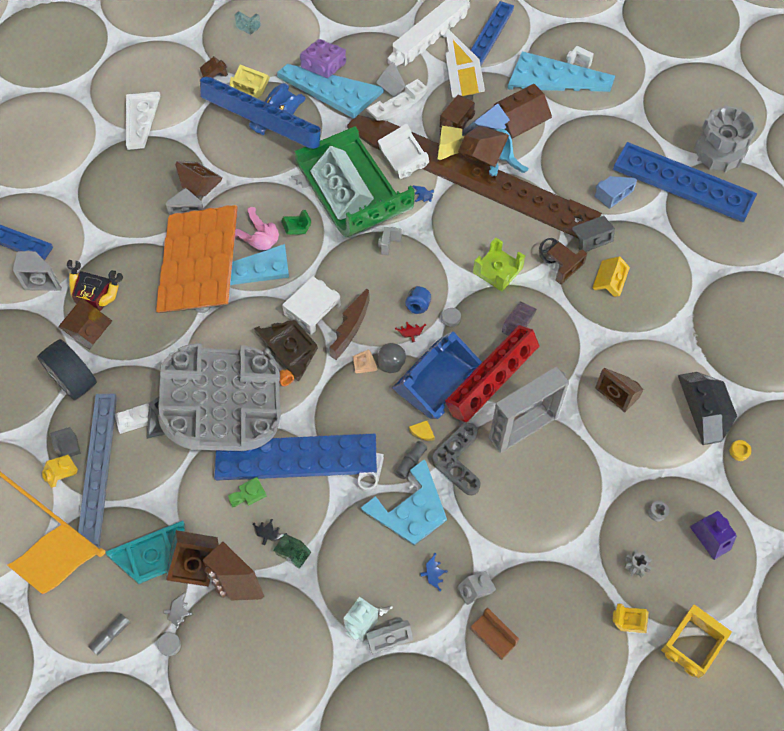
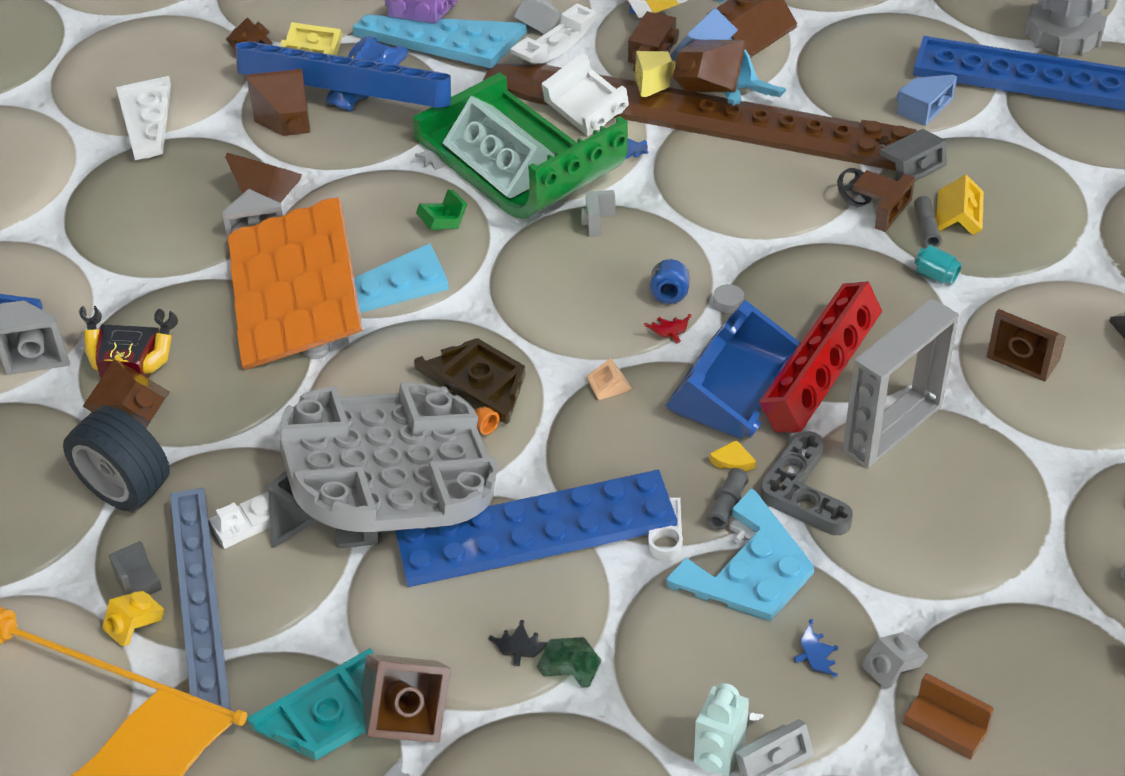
camera: 10 degrees left, 15 degrees down
(219, 125) = (280, 101): none -> reddish brown slope
(231, 575) = (490, 693): reddish brown slope -> none
(250, 492) = (471, 592): bright green plate -> none
(266, 233) = (392, 238): bright pink hair -> none
(311, 304) = (498, 312): white panel -> none
(352, 320) = (570, 330): reddish brown slope -> none
(391, 358) = (649, 366): dark grey hair -> none
(498, 266) = (780, 222): lime panel -> none
(518, 317) = (832, 279): clear purple slope -> none
(584, 317) = (938, 265): none -> teal brick
(588, 280) = (927, 221): none -> dark grey piece

